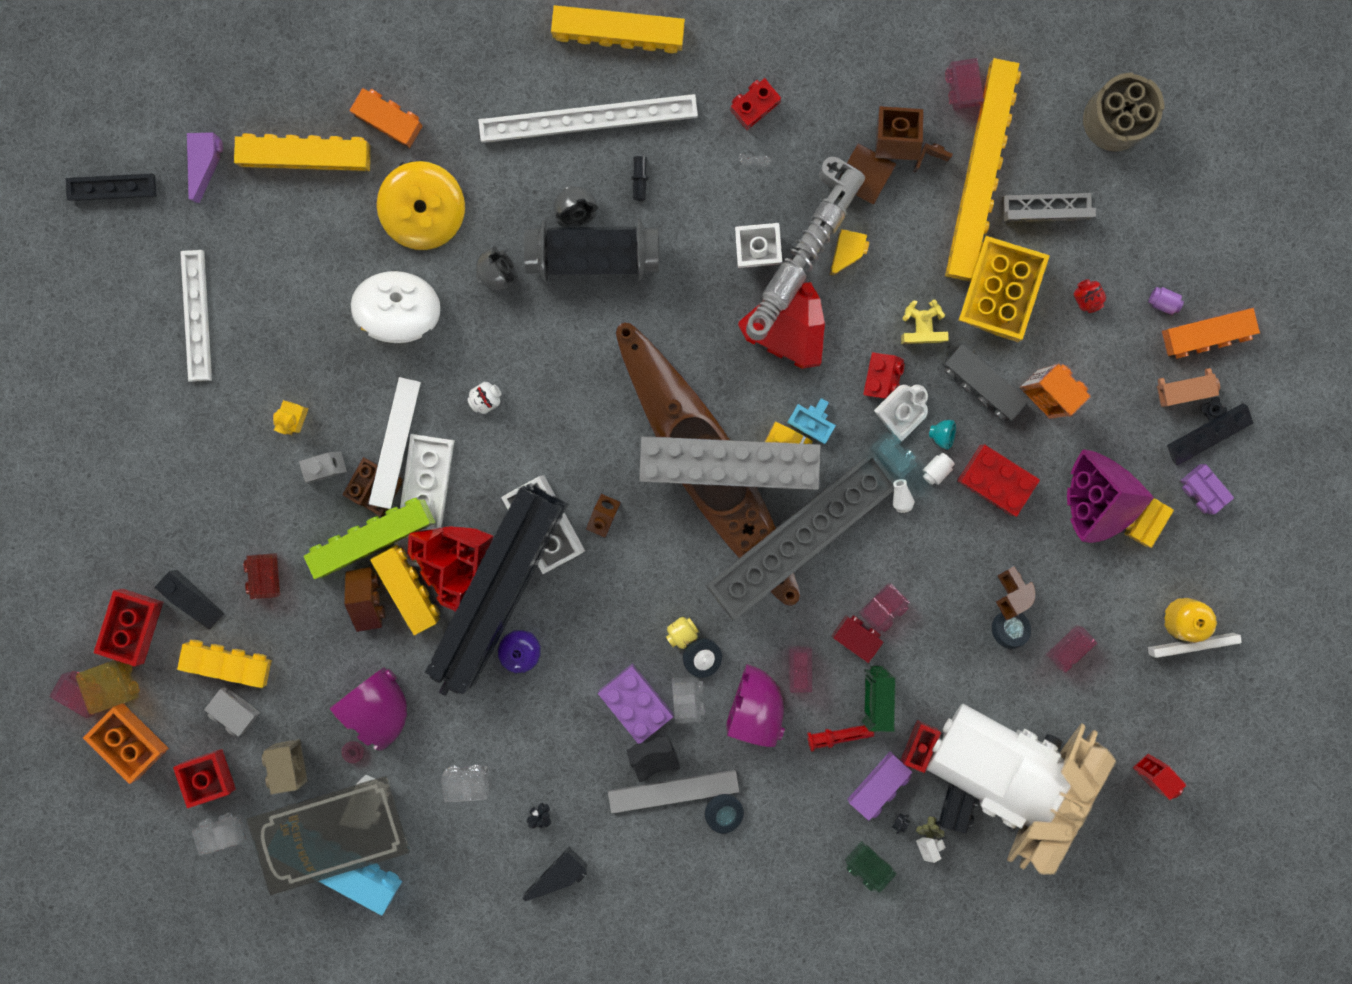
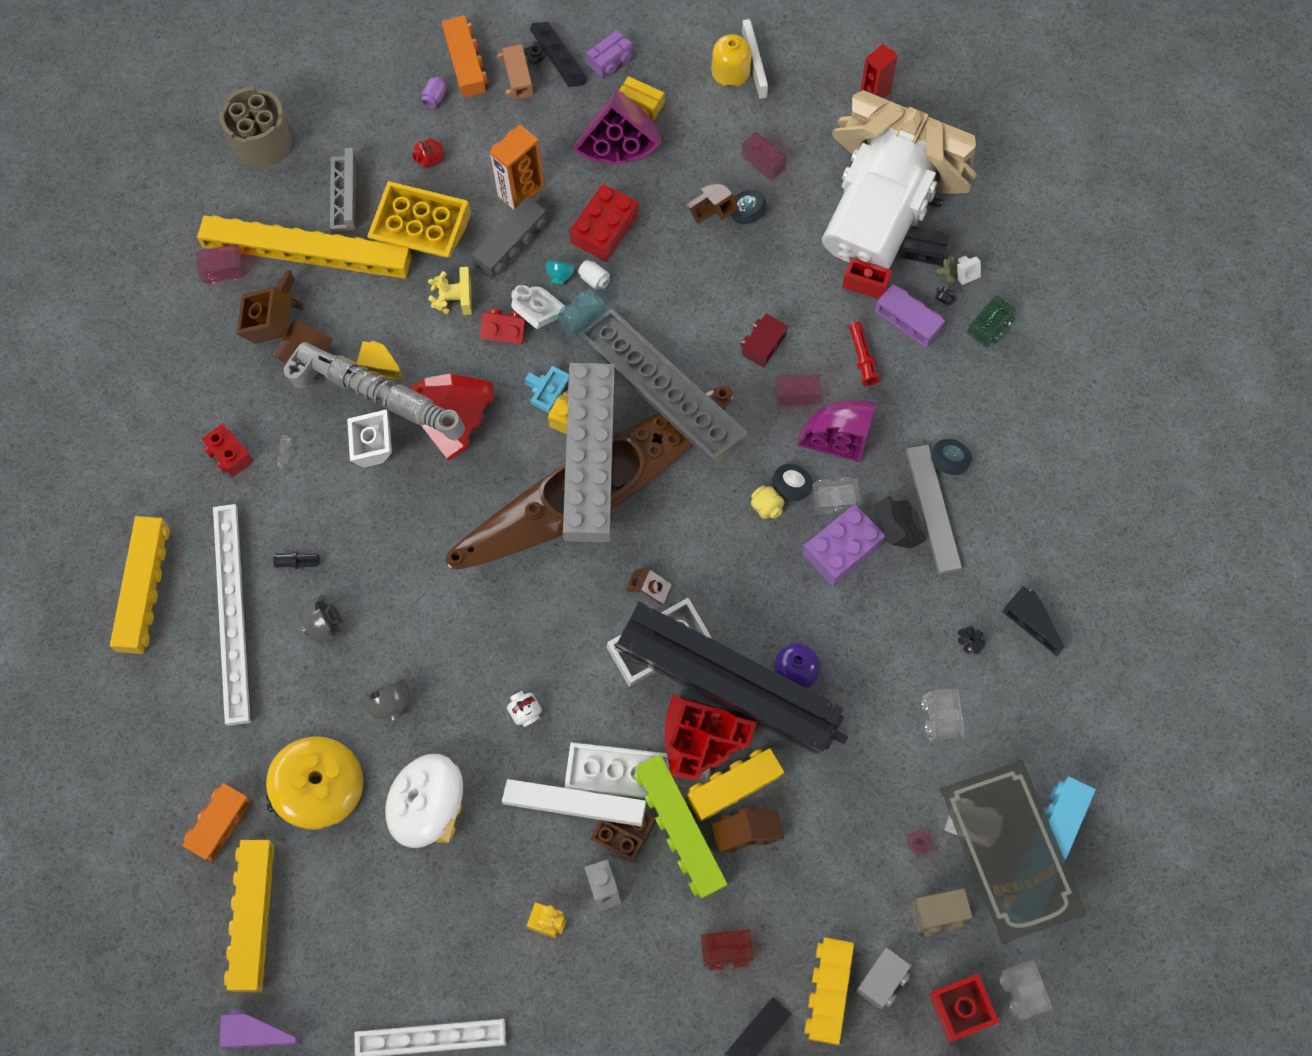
camera: 90 degrees left, 20 degrees down
(374, 710) = (867, 814): magenta brick -> none
(591, 250) = (369, 596): black brick -> none
(879, 700) = (822, 310): dark green window -> none
(884, 608) = (732, 317): clear pink brick -> none
(902, 497) = (623, 304): white cone -> none

